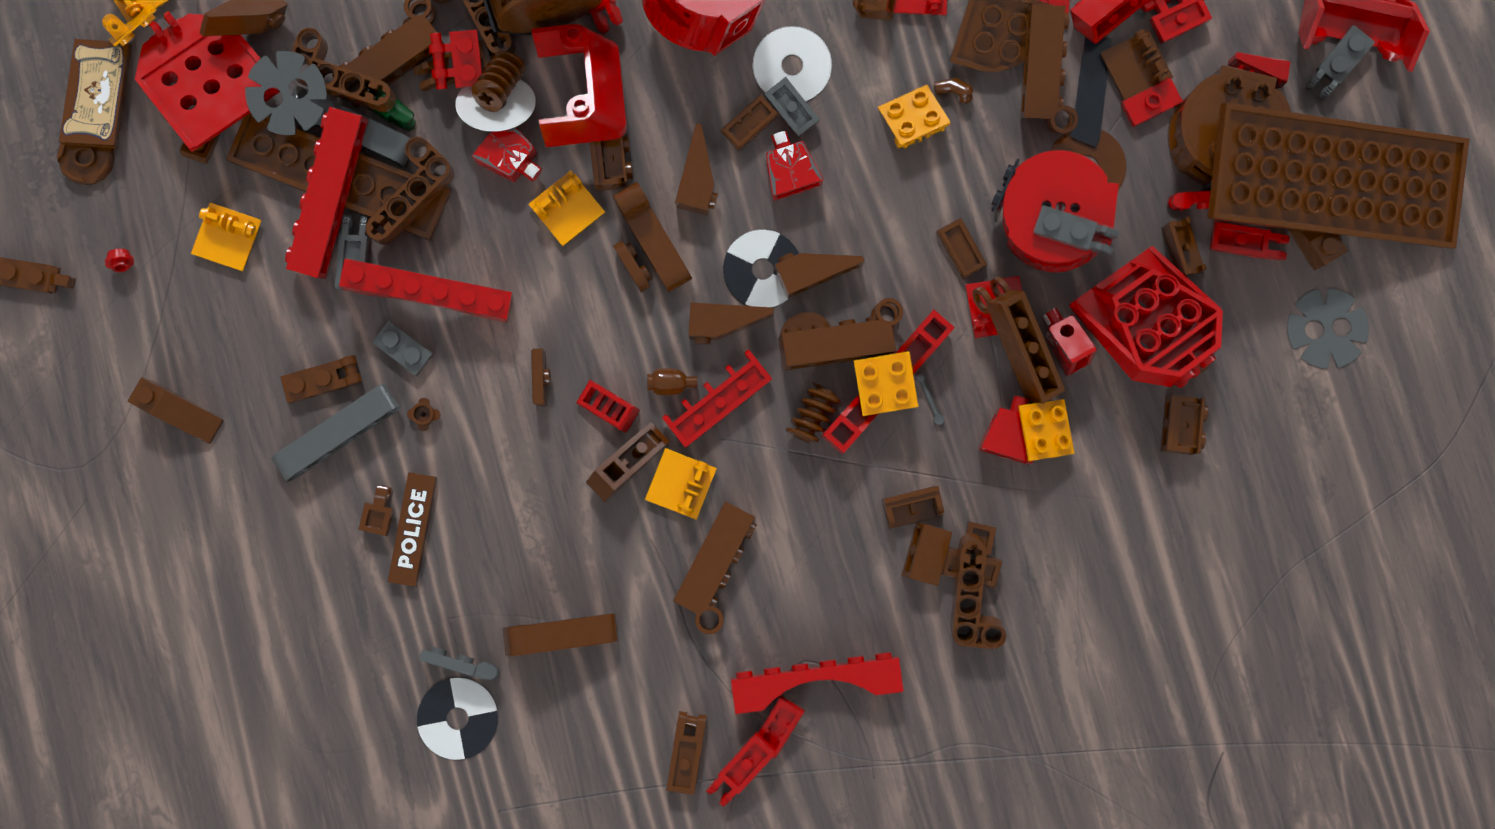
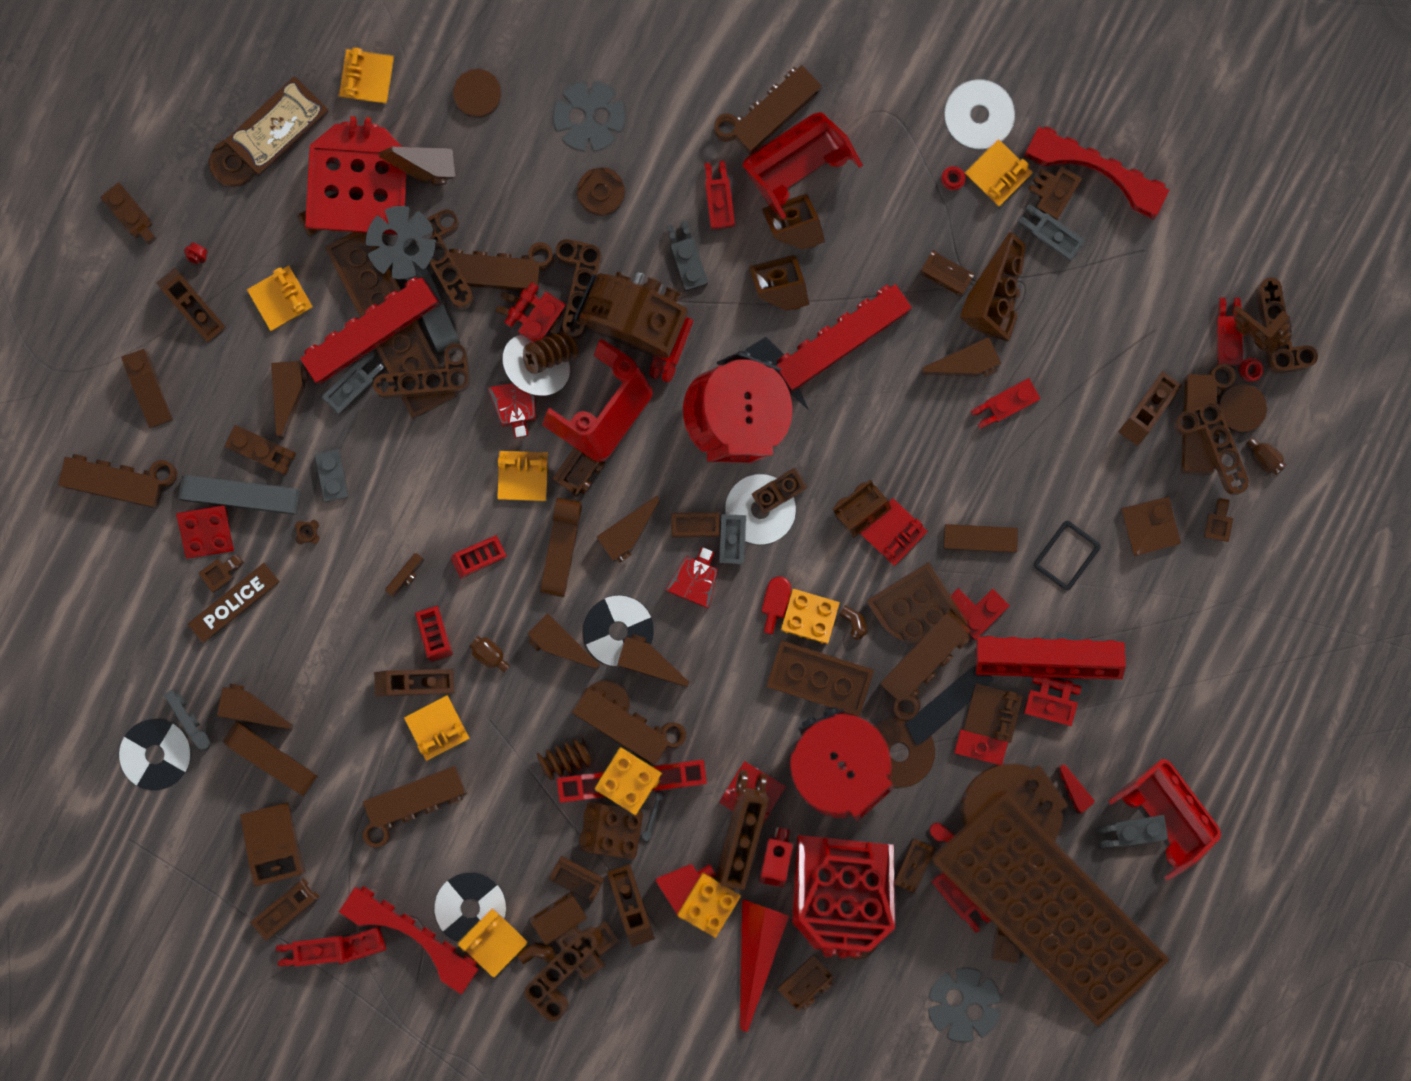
camera: 40 degrees right, 0 degrees up
(122, 32) = (330, 104): light orange hinge -> none
(152, 307) = (190, 304): none -> reddish brown slope
(218, 515) = (115, 483): none -> reddish brown hinge
(300, 306) = (287, 390): none -> reddish brown slope
(334, 489) = (205, 531): none -> red hinge
(398, 115) = (466, 316): dark green hinge -> none
(425, 289) = (379, 453): red arch -> none
(499, 609) = (245, 706): none -> reddish brown slope
(581, 330) = (459, 566): none -> red slope
(627, 707) = (272, 844): none -> reddish brown slope
(639, 275) = (534, 543): reddish brown plate -> none
(719, 401) = (510, 695): red hinge -> none
(795, 34) = (779, 491): none -> reddish brown slope
(820, 605) = (457, 890): none -> sticker
(873, 129) = (775, 601): none -> red piece
(890, 623) = (493, 942): none -> light orange bracket
(905, 441) = (610, 831): none -> reddish brown bracket
(933, 597) = (537, 950): none -> reddish brown arm
(961, 248) = (763, 734): reddish brown tile -> none
(966, 160) = (820, 678): none -> reddish brown plate
(979, 489) = (630, 905): none -> reddish brown slope
(1073, 230) = (833, 787): dark grey hinge -> none
(1115, 424) = (759, 942): none -> red wedge

